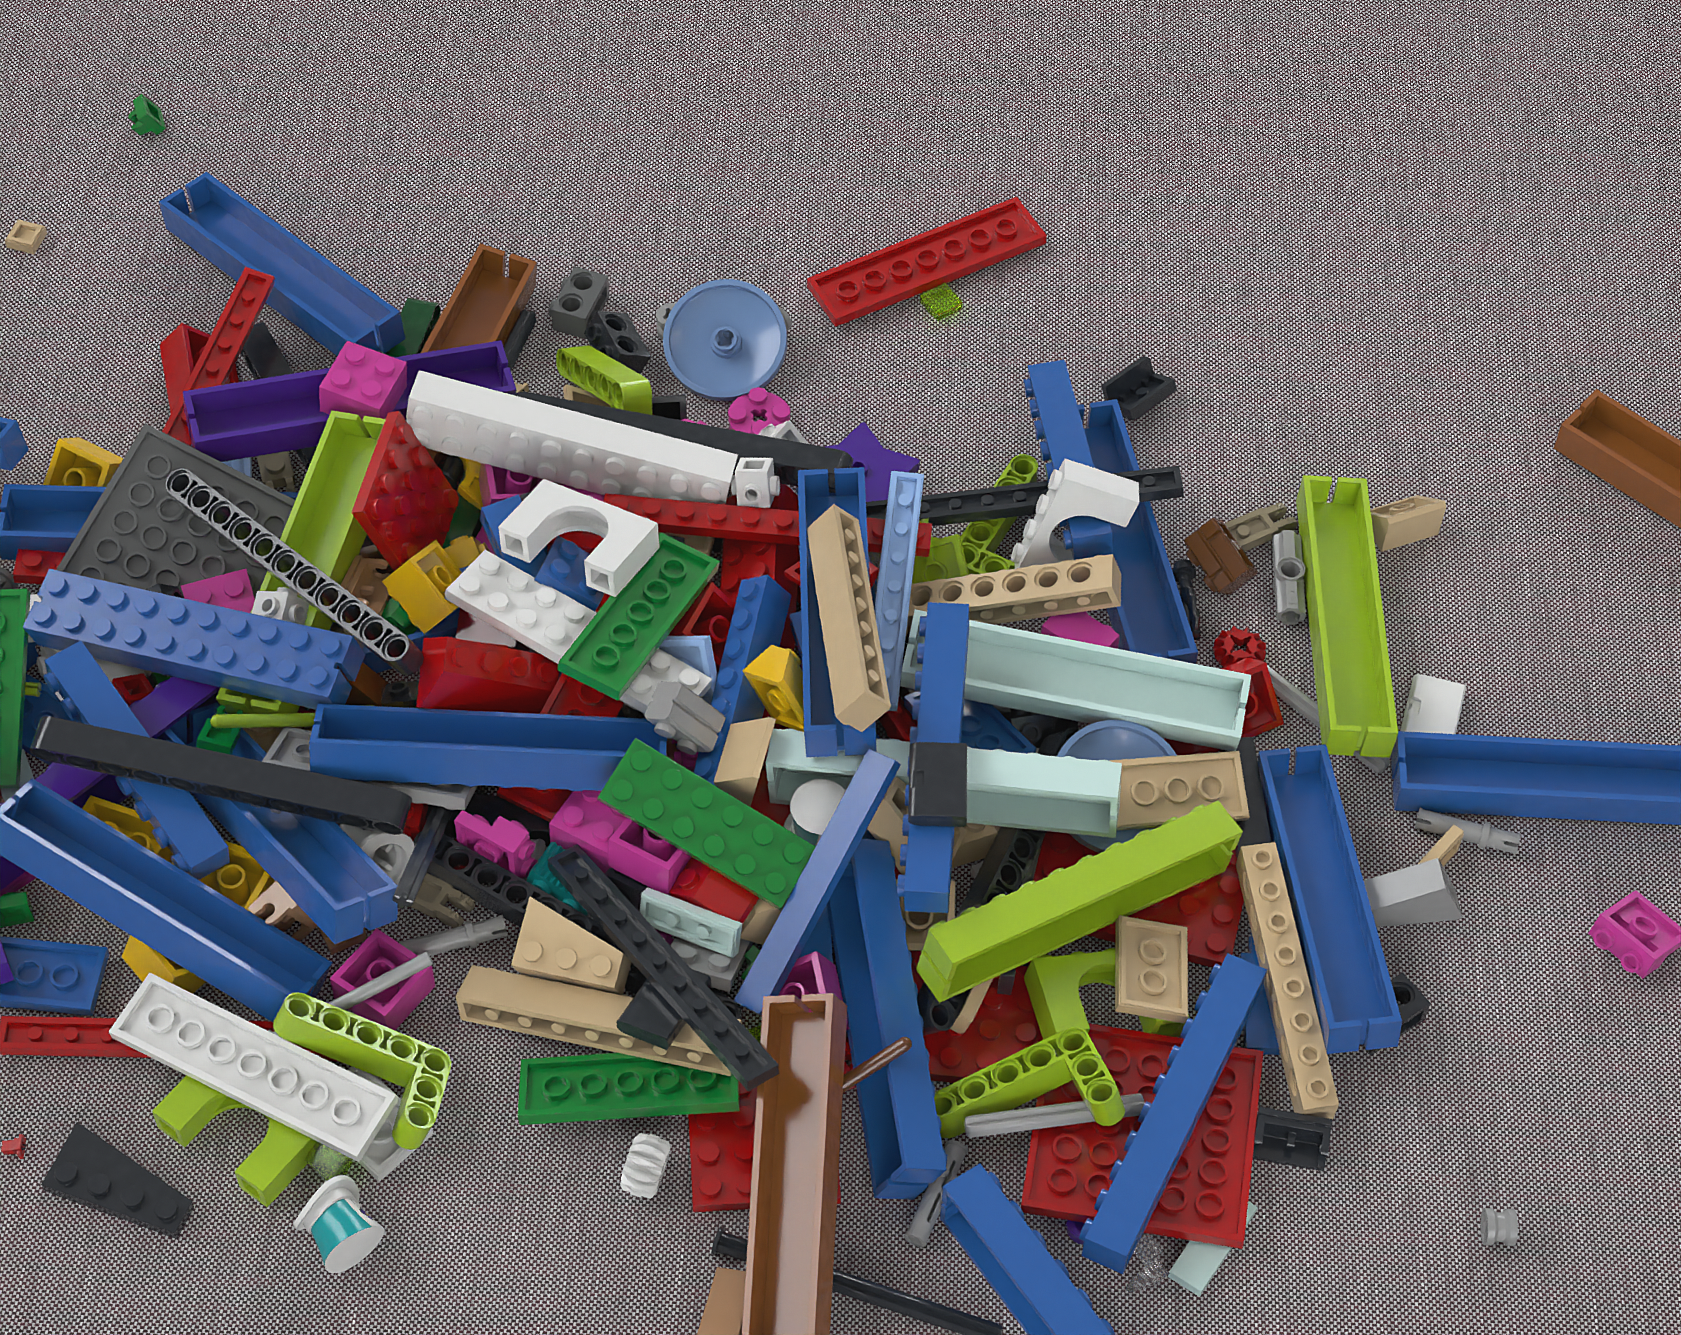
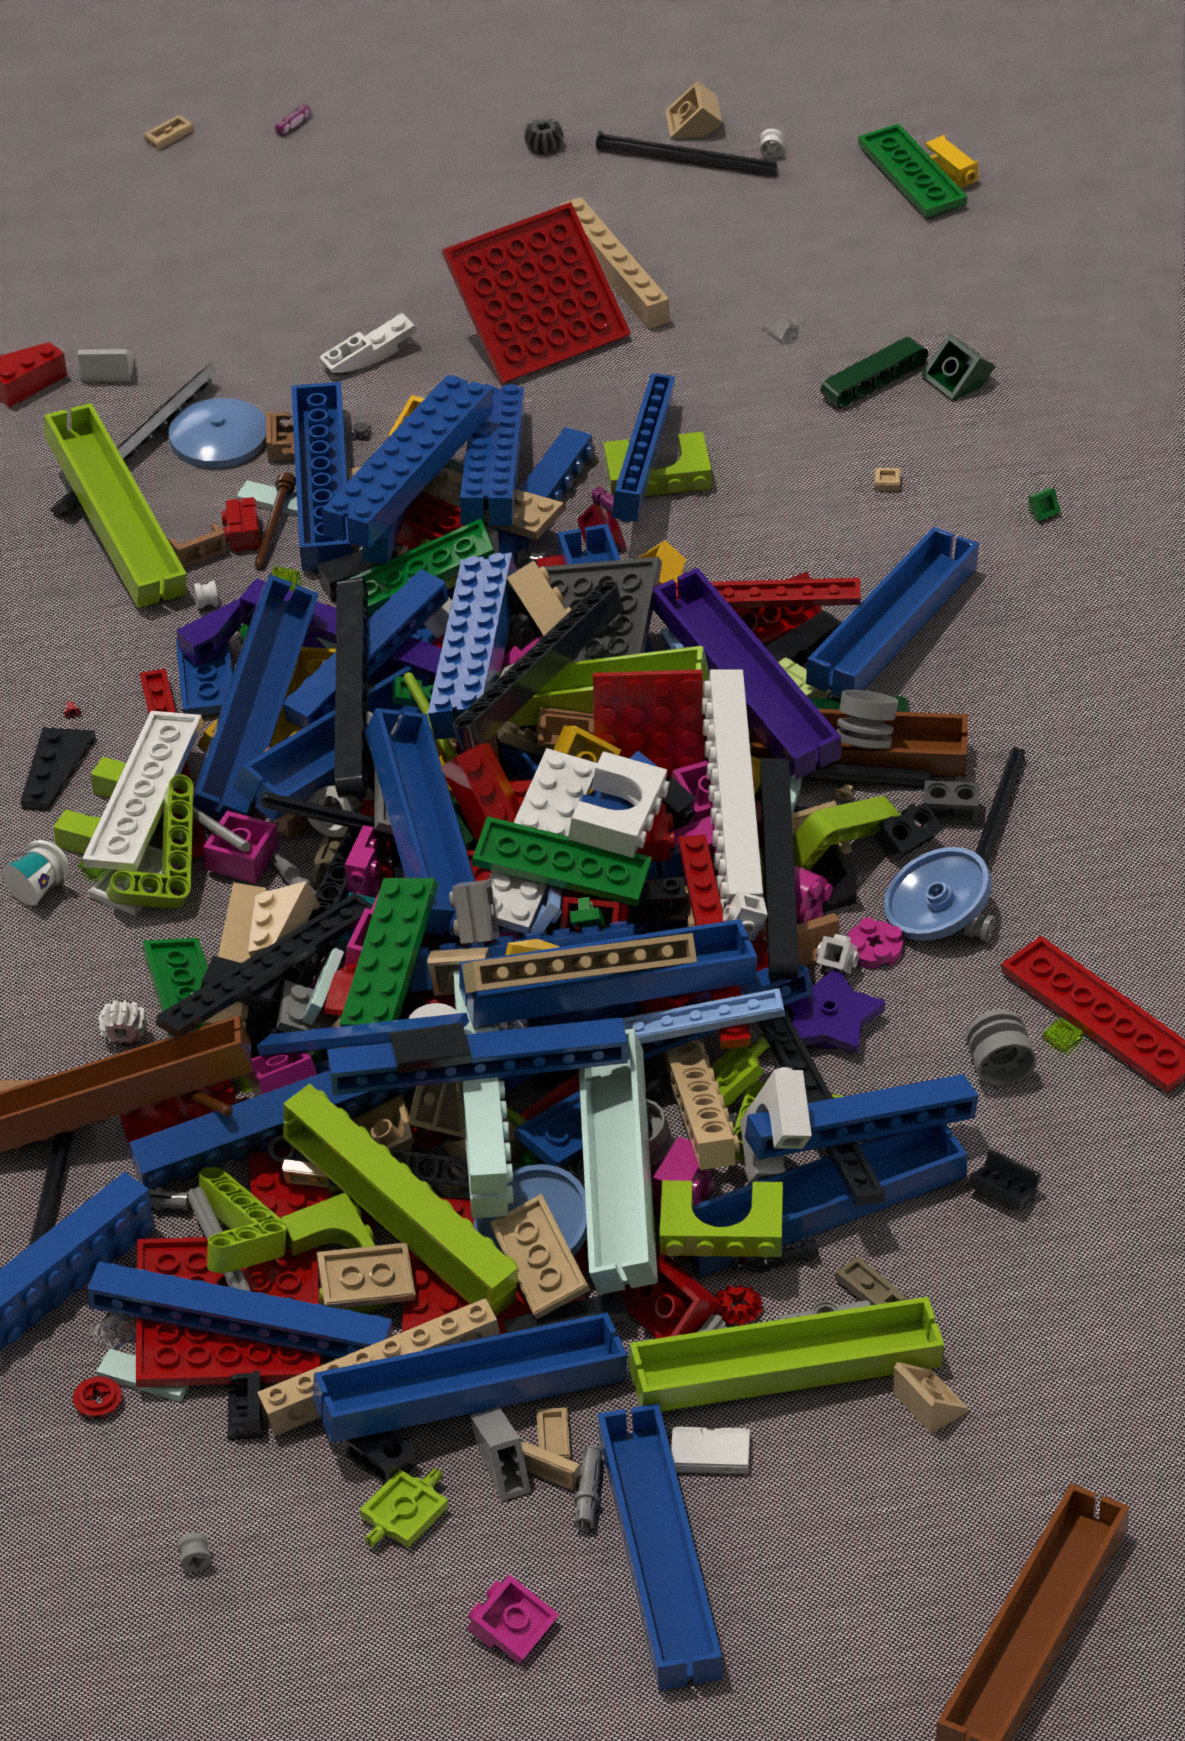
camera: 80 degrees right, 10 degrees down
(148, 559) = (538, 597): none -> tan wedge
(363, 382) = (743, 651): dark pink brick -> none
(463, 316) = (867, 714): none -> light grey wheel
(577, 258) = (1000, 804): none -> black axle
(720, 616) = (586, 915): none -> green tile
(966, 342) = (1000, 1047): none -> light grey wheel
(1190, 582) = (753, 1237): none -> lime arch
(1219, 556) = (823, 1263): reddish brown brick -> none
(1251, 1286) = (105, 1388): none -> red gear
(1385, 850) = (553, 1431): none -> tan tile
(1468, 1007) = (404, 1508): none -> lime plate

